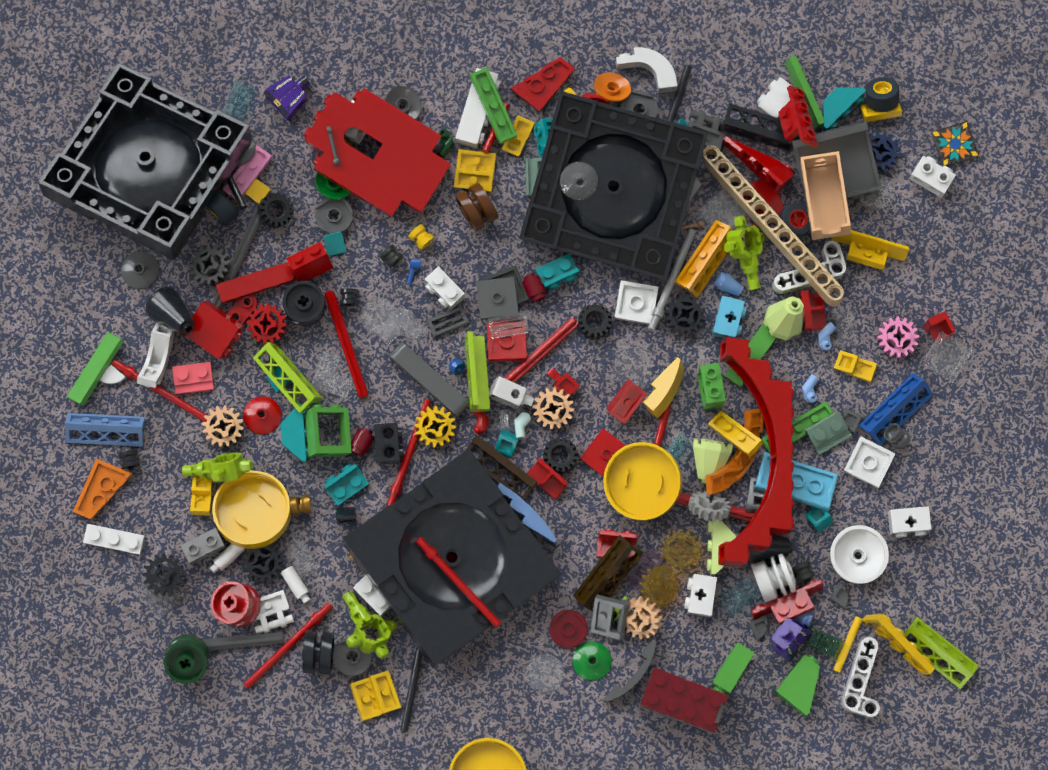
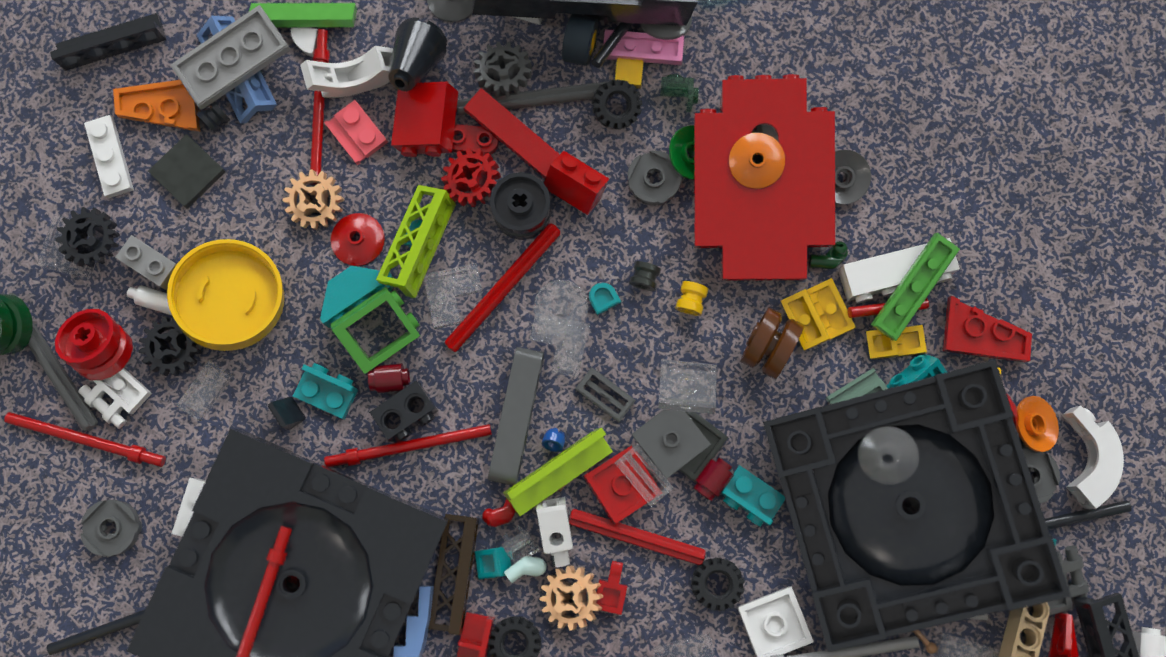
camera: 65 degrees right, 0 degrees up
(36, 498) = (109, 42): none -> black fence
(101, 424) = (230, 57): none -> light grey tile
(154, 495) = (186, 171): none -> pearl dark grey tile
(201, 496) = (219, 225): yellow slope -> none
(221, 468) = (254, 229): lime piece -> none
(284, 168) = (678, 86): none -> clear green bracket
(288, 95) = (768, 37): dark purple torso -> none
(296, 584) = (165, 403): white cylinder -> none
(300, 505) = (267, 350): pearl gold wheel -> none
(318, 652) = (83, 483): black wheel -> none
(334, 243) = (620, 199): teal slope -> none
(336, 161) = (720, 134): dark grey hinge -> none
(349, 297) = (562, 255): black wheel -> none
(363, 619) = (161, 513): lime piece -> none
(364, 159) = (753, 174): none -> orange dish
(375, 695) = (75, 586): yellow slope -> none
(389, 288) = (603, 297): none -> teal tile
(414, 264) = (652, 310): blue hand -> none
(438, 438) = (470, 466): yellow gear -> none
(448, 292) = (645, 360): white brick -> none
(472, 270) = (687, 386): none -> clear tile

